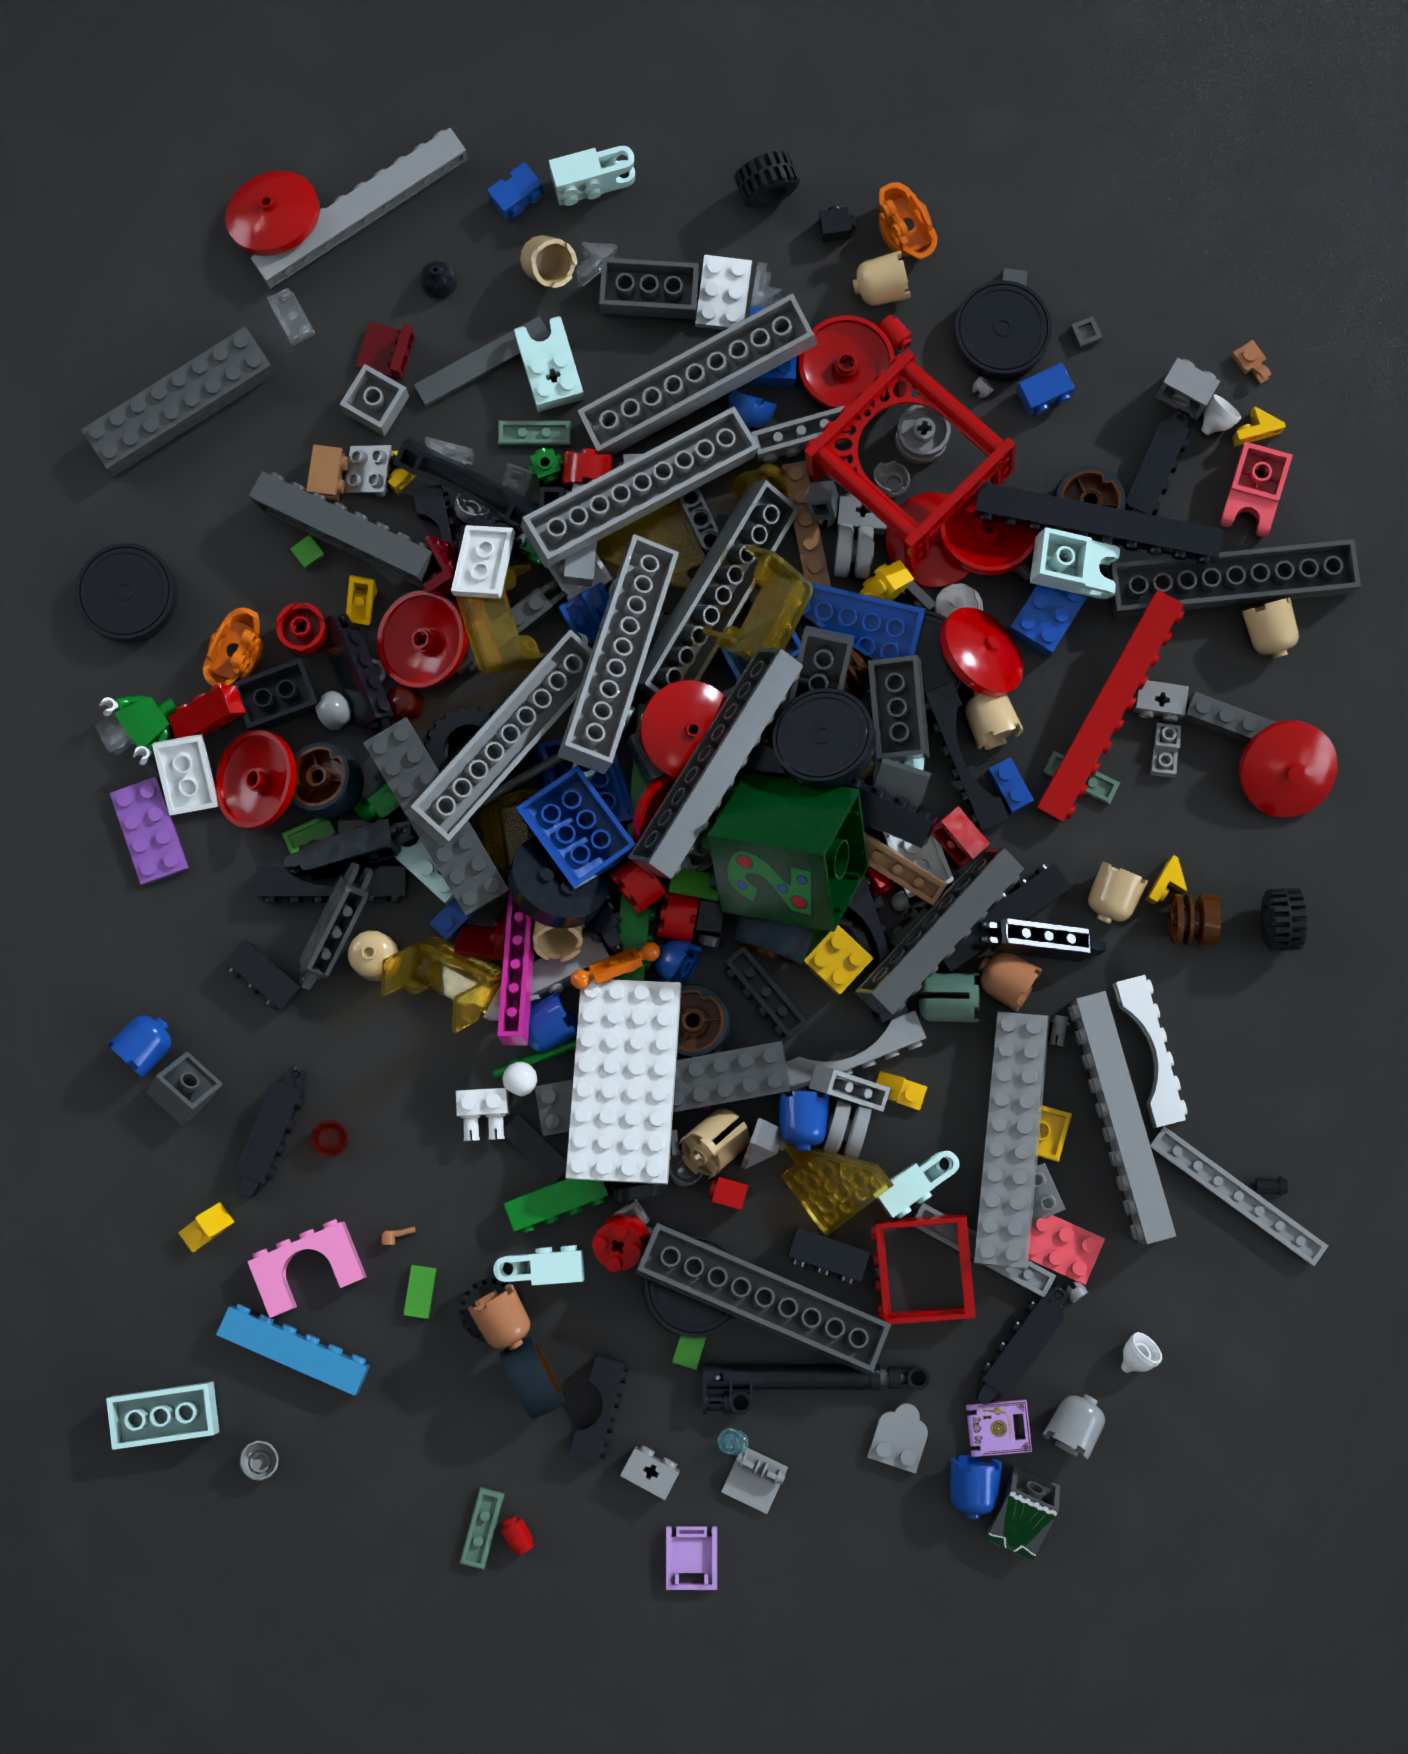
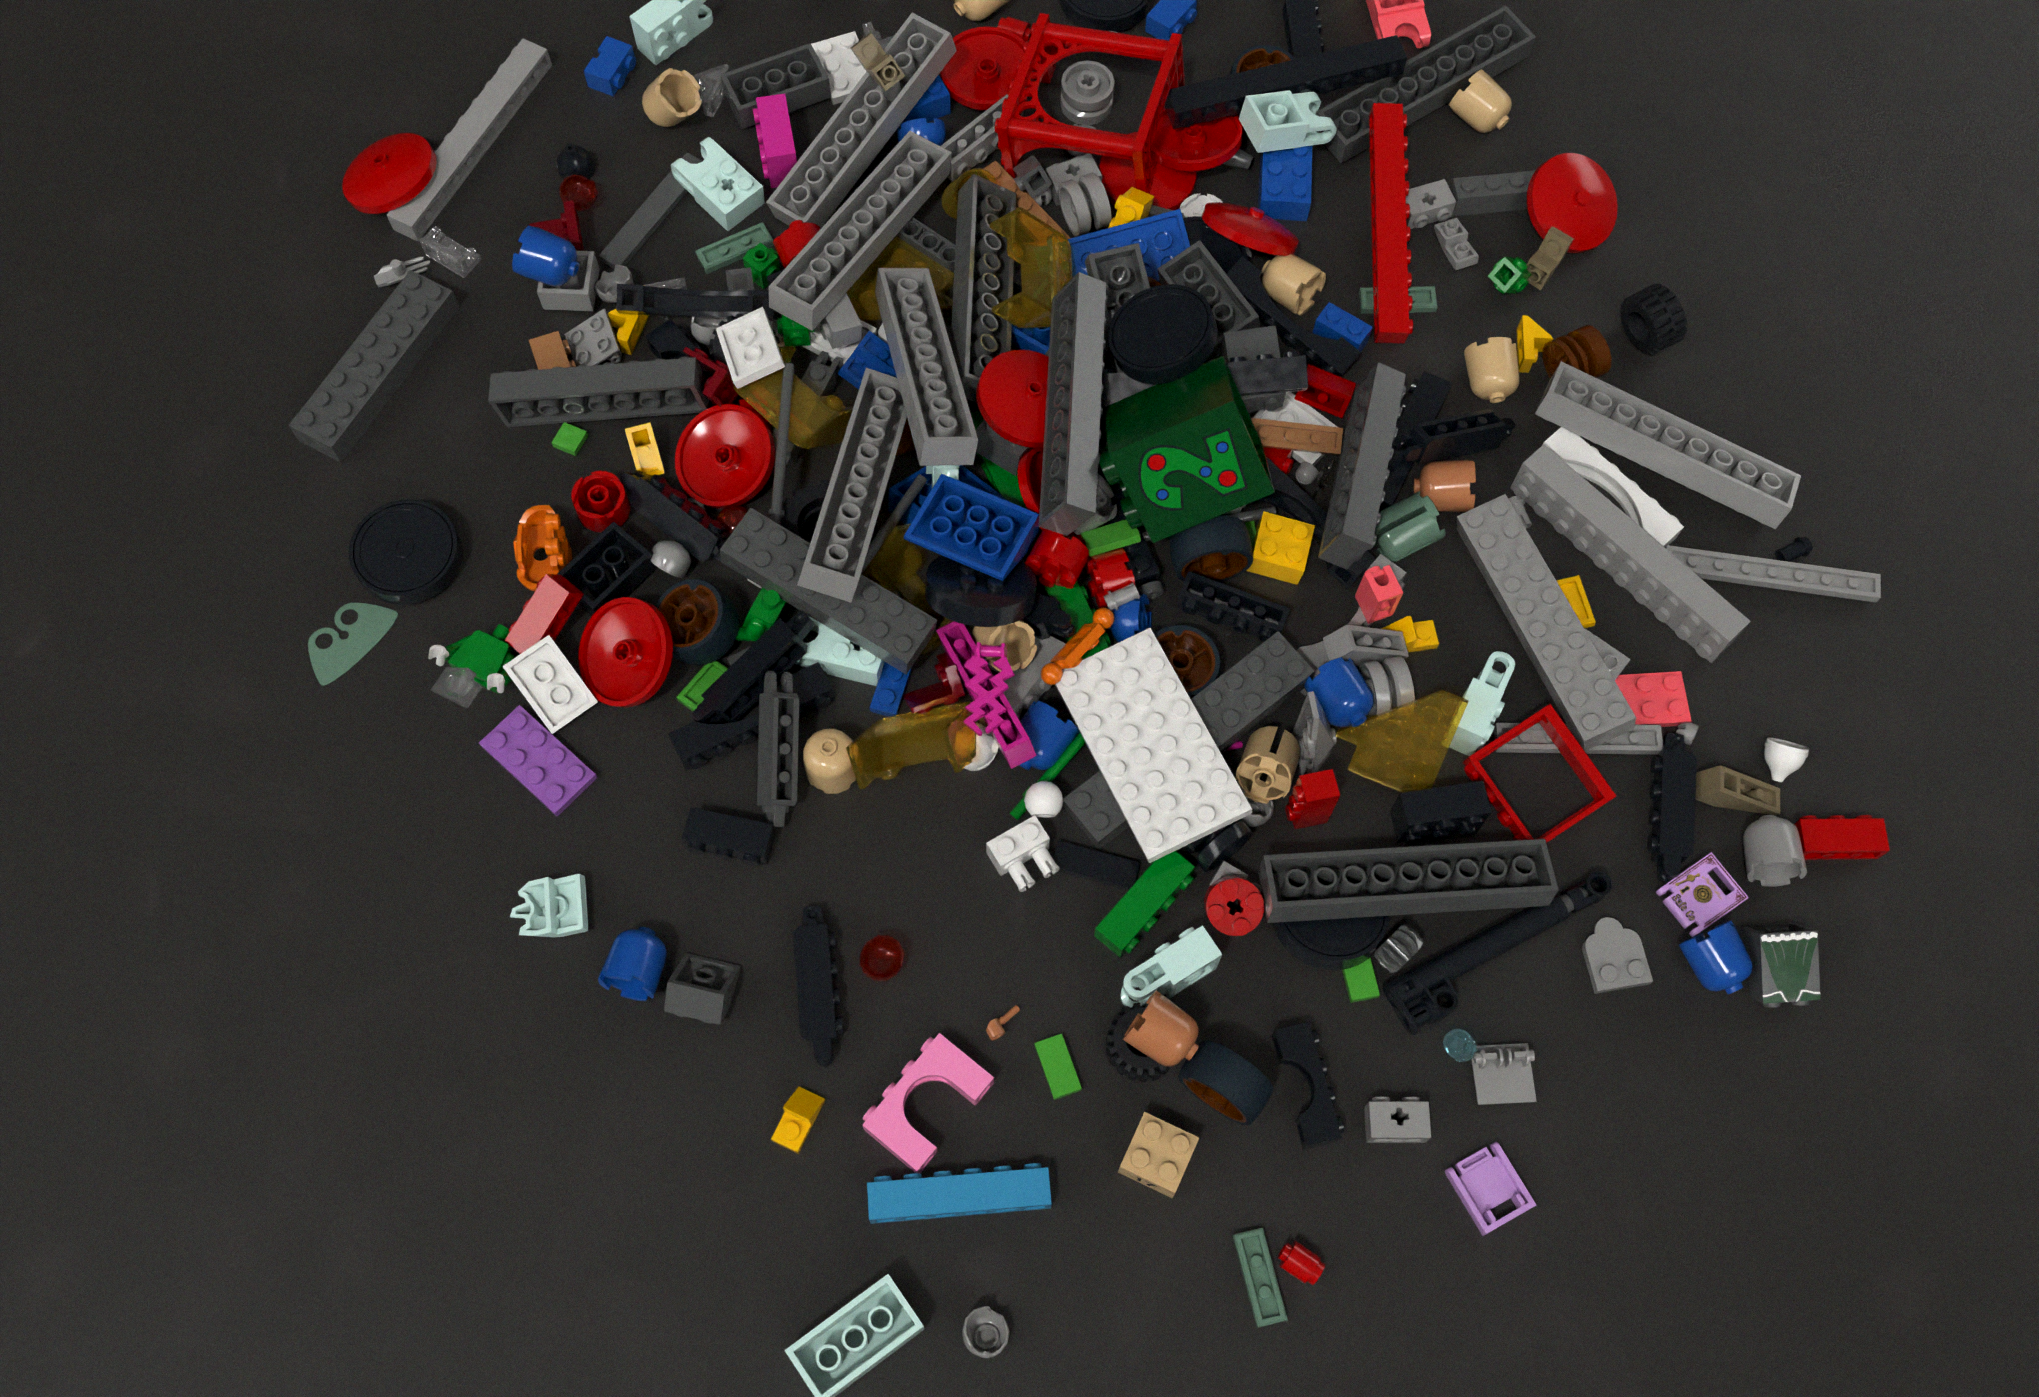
camera: 30 degrees left, 15 degrees down
(65, 646) = (364, 634): none -> sand green piece
(103, 963) = (553, 907): none -> light aqua plate
(239, 313) = (397, 271): none -> light grey piece
(357, 382) = (545, 257): none -> blue cylinder
(412, 422) = (607, 285): none -> light grey hair
(425, 312) = (580, 190): none -> clear red hair
(432, 722) = (776, 512): none -> dark grey bar
(455, 1400) = (1158, 1155): none -> tan brick
(509, 980) = (975, 666): none -> dark pink piece
(619, 347) = (777, 137): none -> dark pink brick
(674, 941) = (1121, 596): none -> light grey pin
(730, 1343) = (1399, 948): none -> dark grey gear
(735, 330) = (876, 62): none -> dark tan slope
(883, 1050) = (1378, 593): none -> coral brick
(1083, 1362) = (1736, 791): none -> dark tan slope
(1140, 1442) = (1842, 837): none -> red brick
(1189, 809) = (1502, 275): none -> green brick
(1218, 1042) = (1669, 445): none -> light grey brick
(1232, 809) = (1548, 257): none -> dark tan slope

